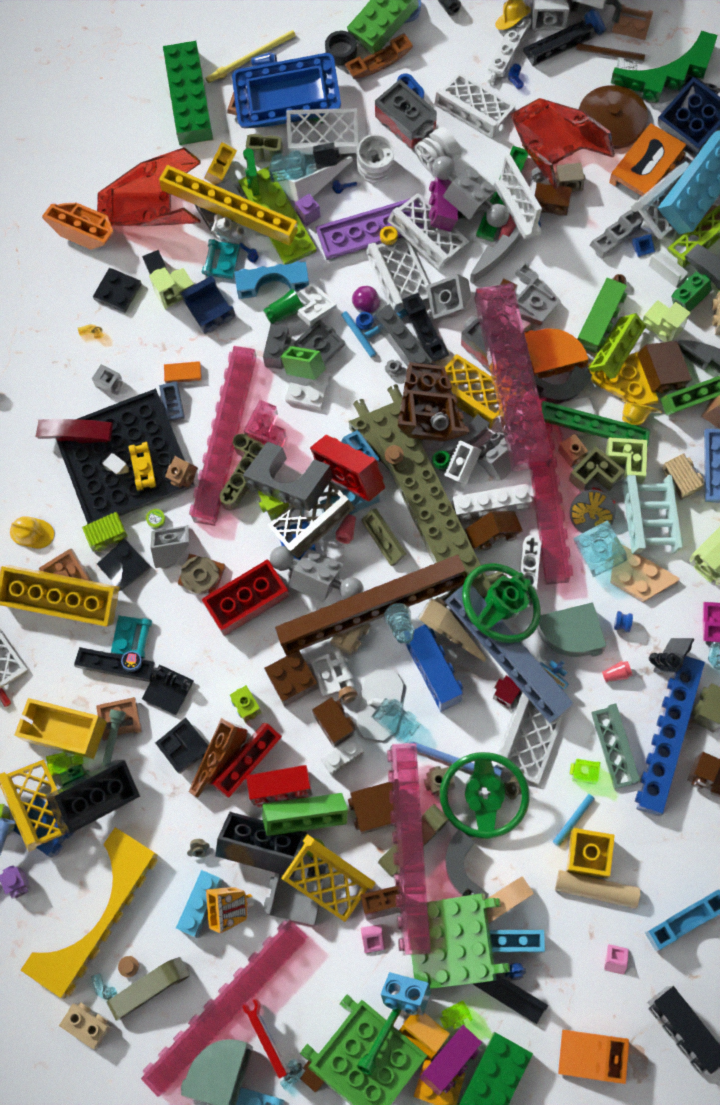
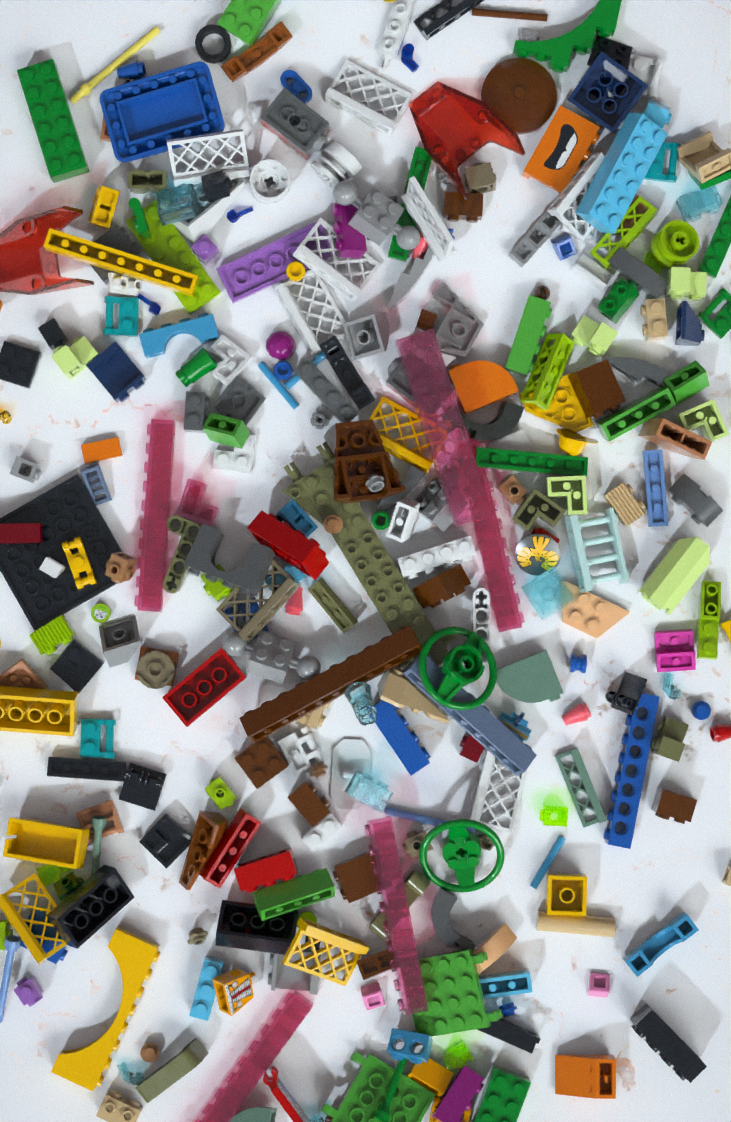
camera: 10 degrees left, 15 degrees up
(131, 661) = (103, 766): tile -> none

